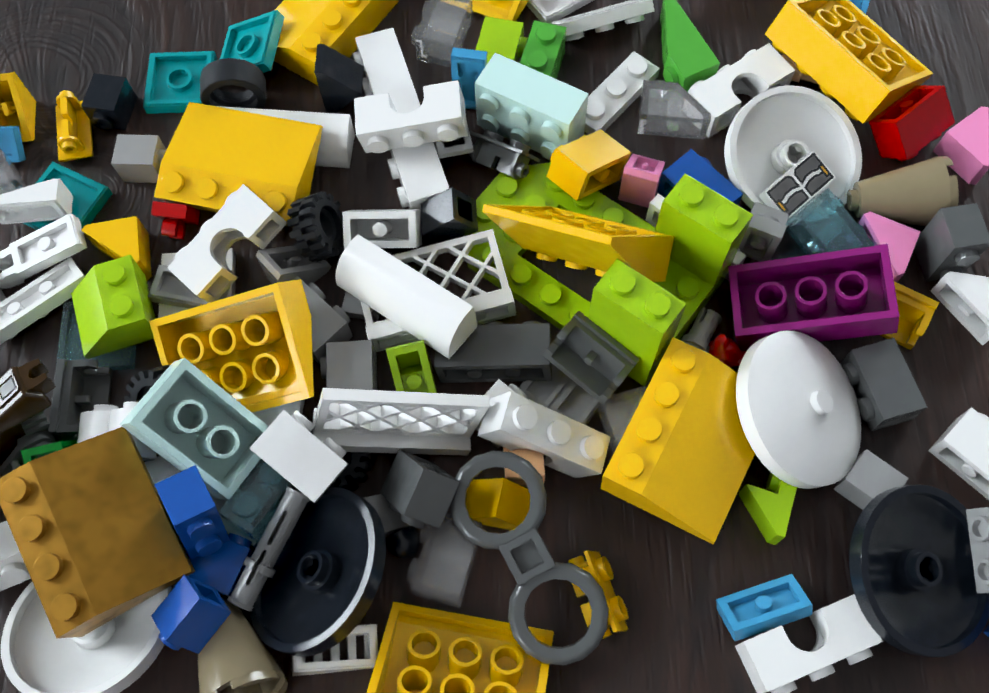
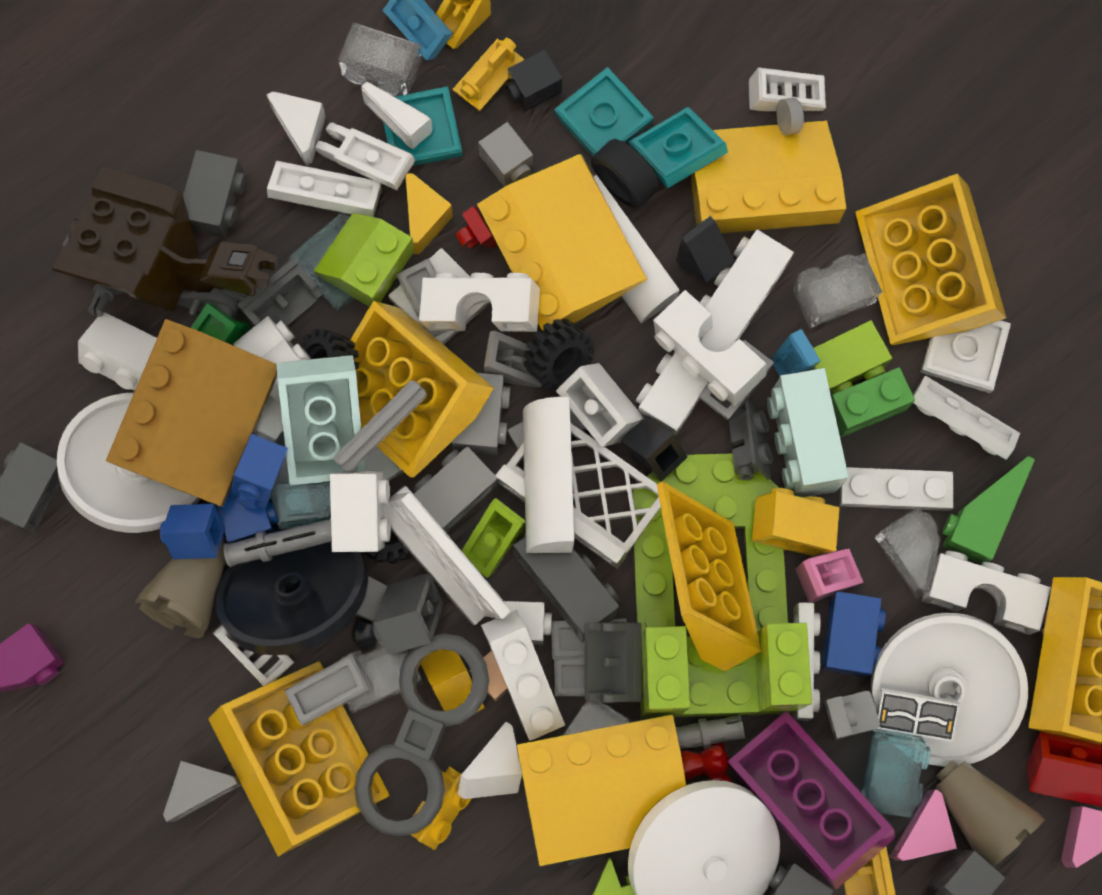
camera: 45 degrees right, 10 degrees up
(249, 383) = (380, 426): none -> light grey axle
(425, 607) = (328, 689): none -> light grey tile
(605, 518) = (494, 769): none -> white slope

